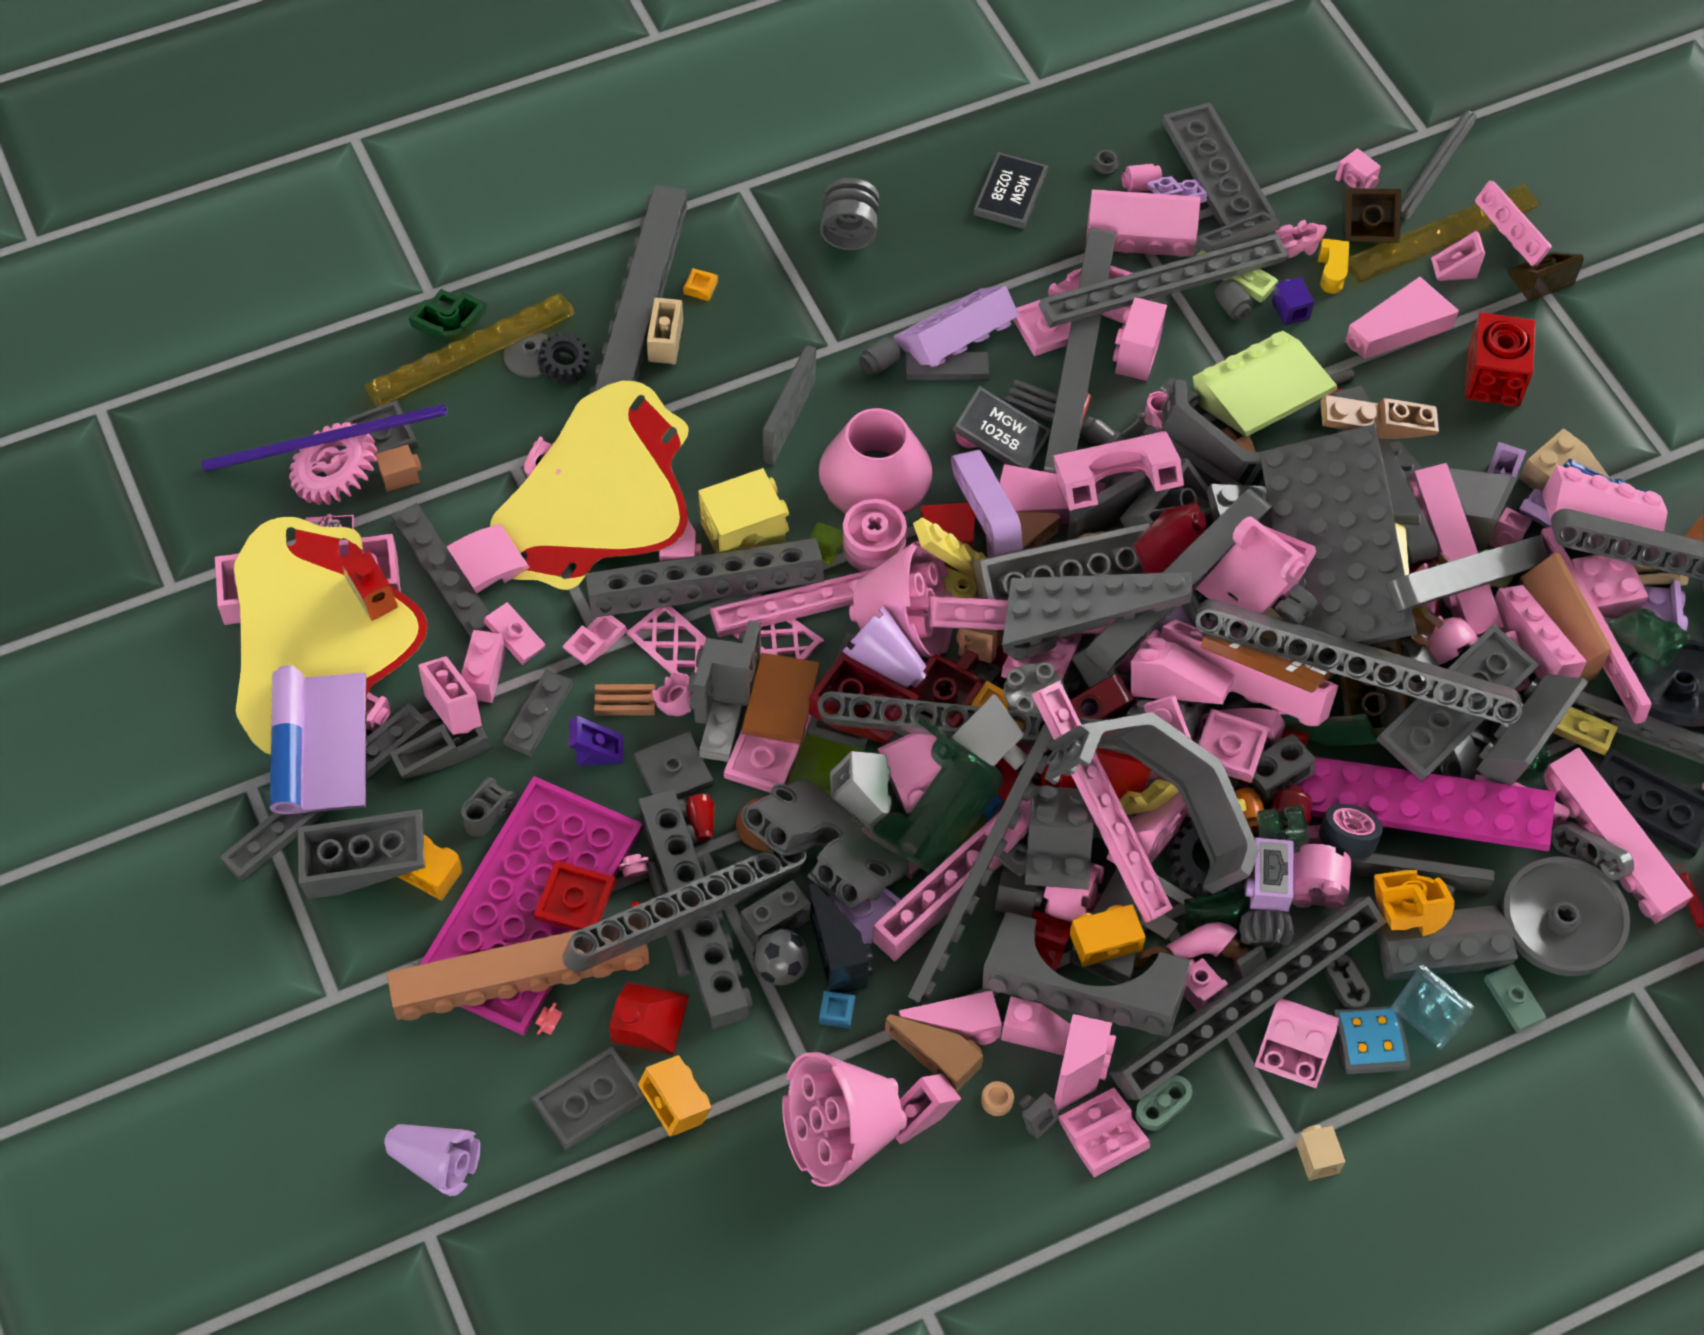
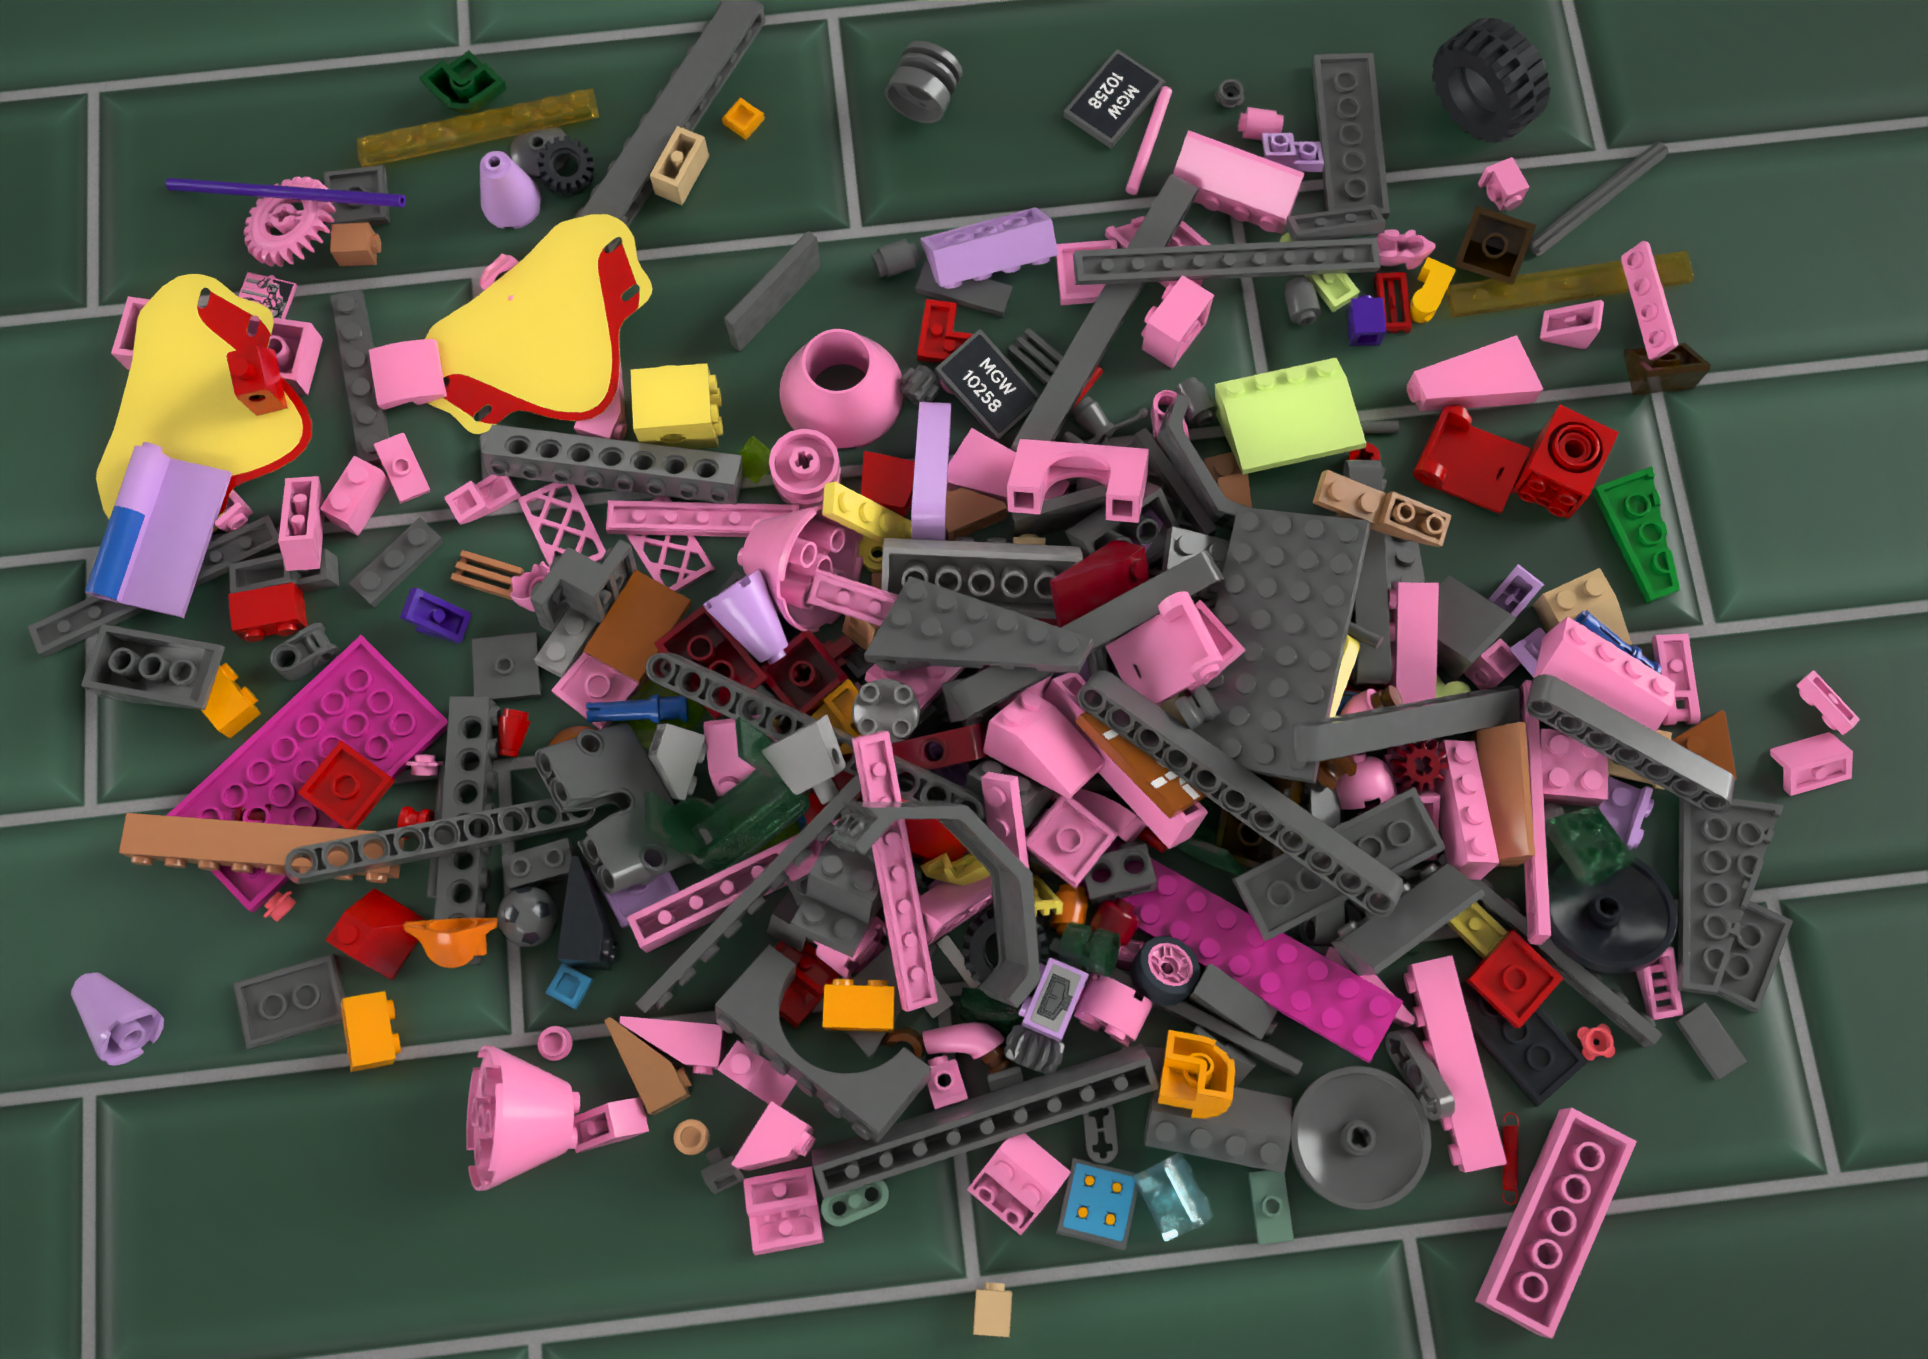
camera: 20 degrees right, 15 degrees up
(439, 782) = (267, 612): none -> red brick
(520, 390) = (507, 192): none -> lavender cone
(729, 990) = (452, 941): none -> orange hat
(823, 758) = (655, 708): none -> blue pin
(847, 1053) = (555, 1043): none -> bright pink plate
(941, 407) = (937, 334): none -> red plate
(943, 445) = (919, 385): none -> dark grey gear
(1053, 214) = (1149, 140): none -> bright pink bar
(1293, 270) = (1394, 326): none -> red tile
(1333, 75) = (1491, 80): none -> black tyre
(1415, 839) = (1232, 1003): none -> dark grey slope
(1424, 380) = (1468, 459): none -> red door
(1496, 606) = (1430, 758): none -> dark red gear
(1573, 390) = (1637, 525): none -> green wing
(1635, 755) = (1514, 979): none -> red plate
(1650, 478) = (1675, 658): none -> bright pink plate

